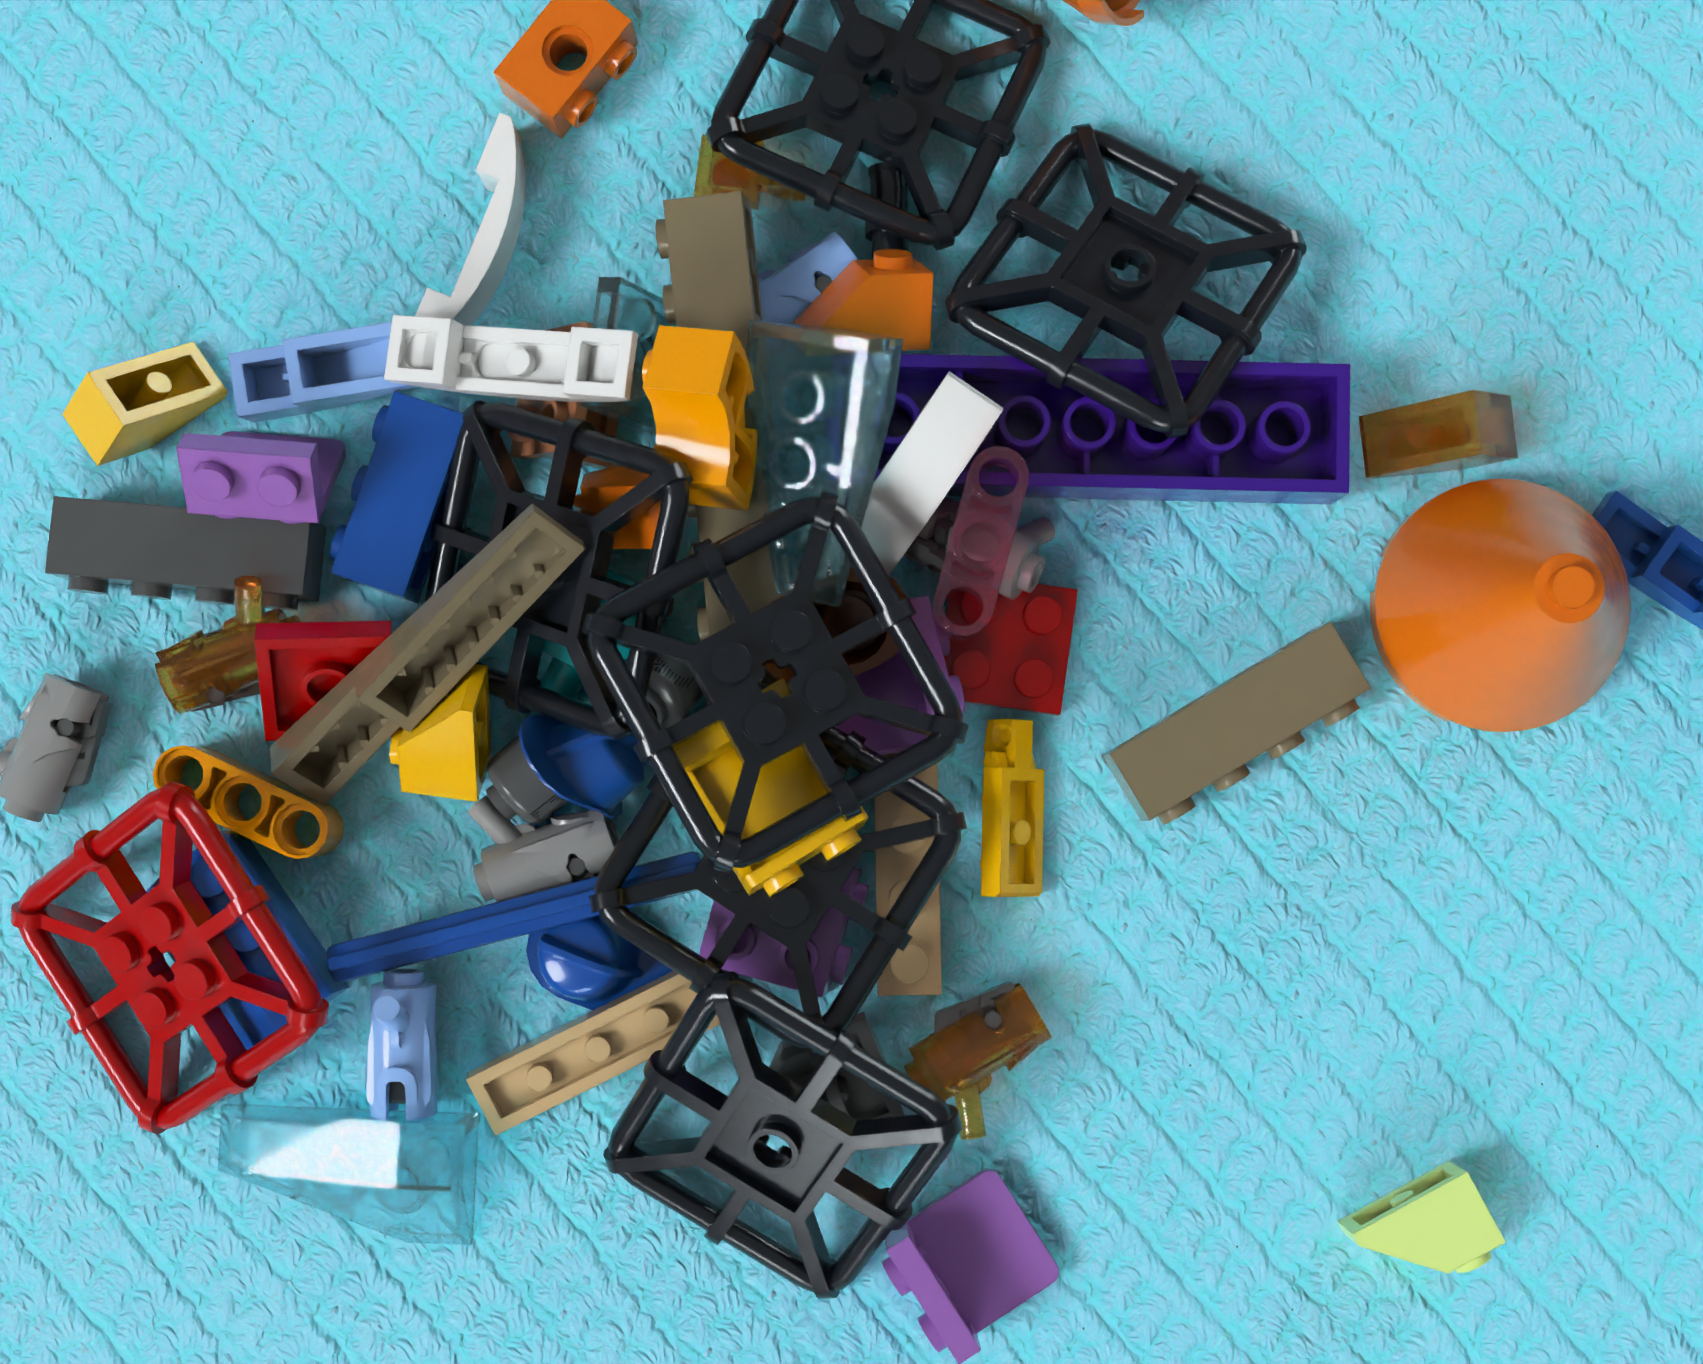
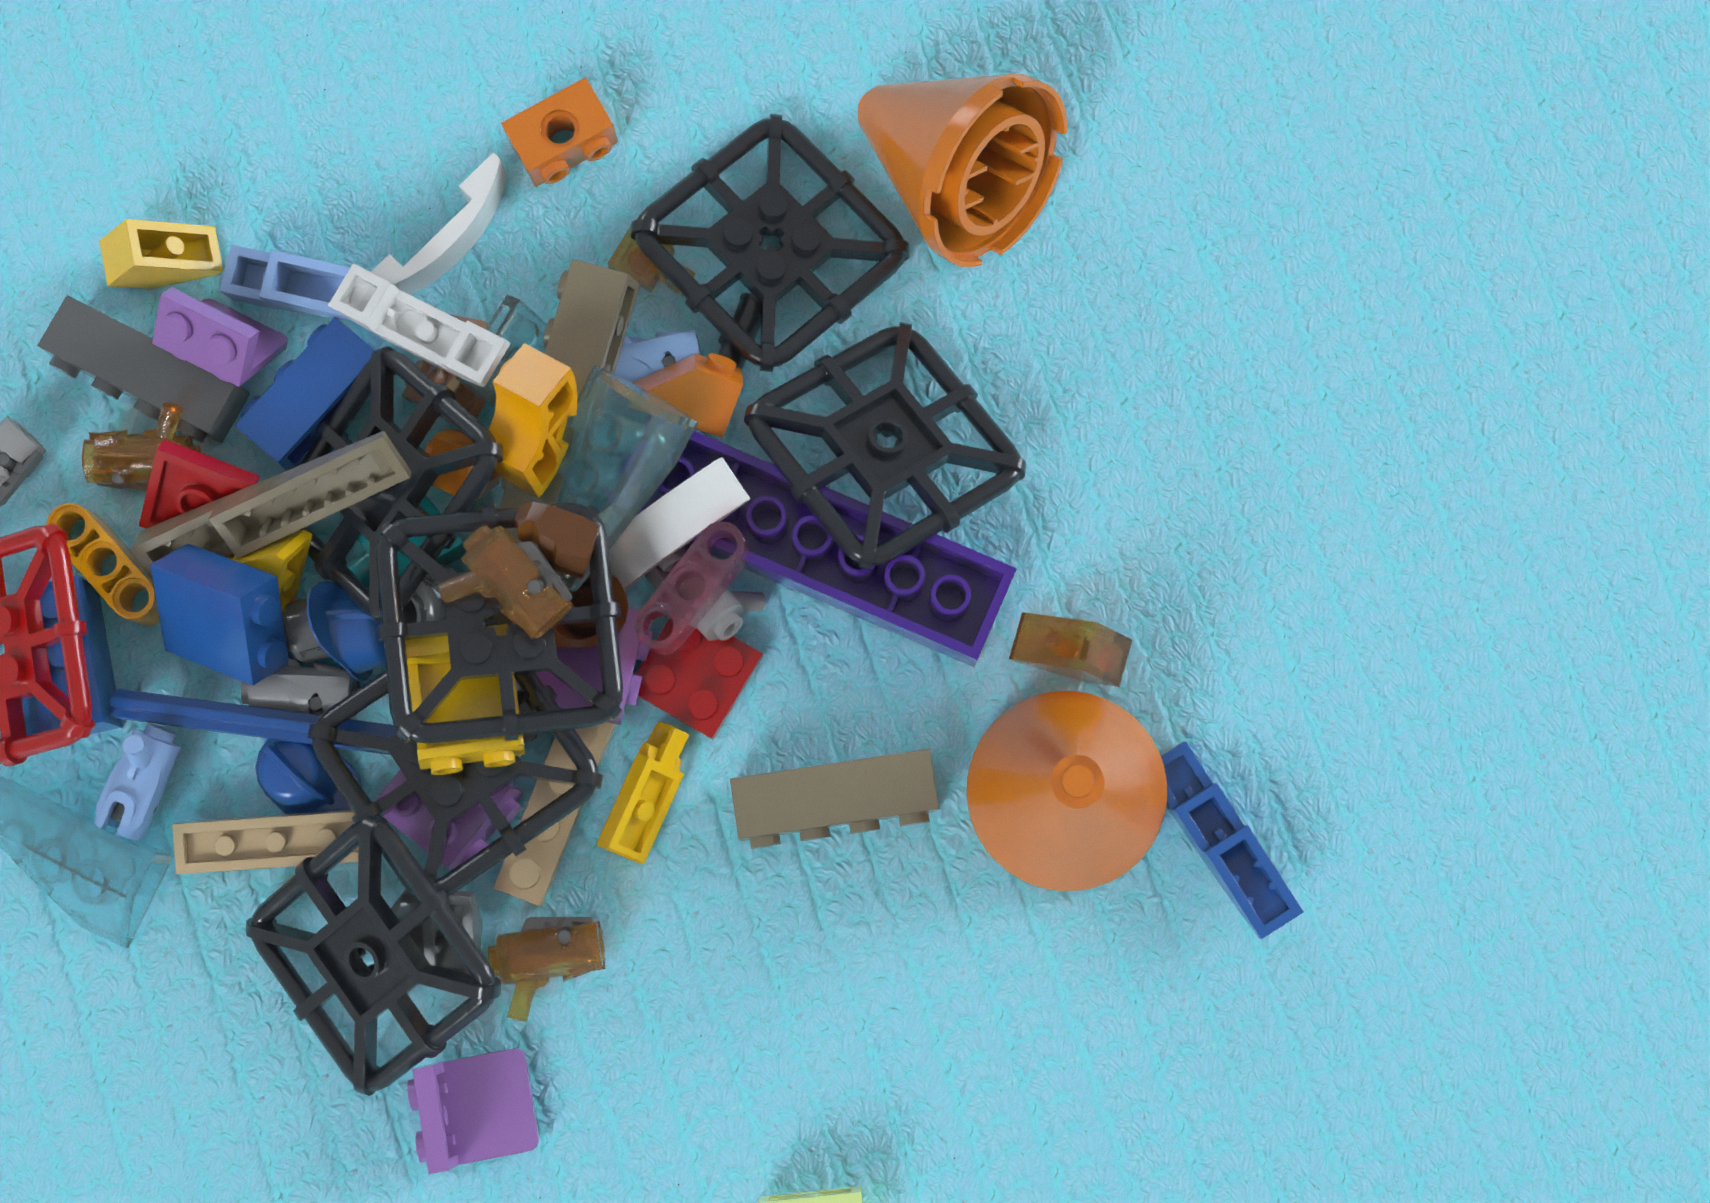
camera: 25 degrees right, 5 degrees down
(417, 806) = (220, 613): none -> blue brick
(777, 616) = (513, 575): none -> clear orange piece
(809, 547) = (561, 536): none -> reddish brown rock

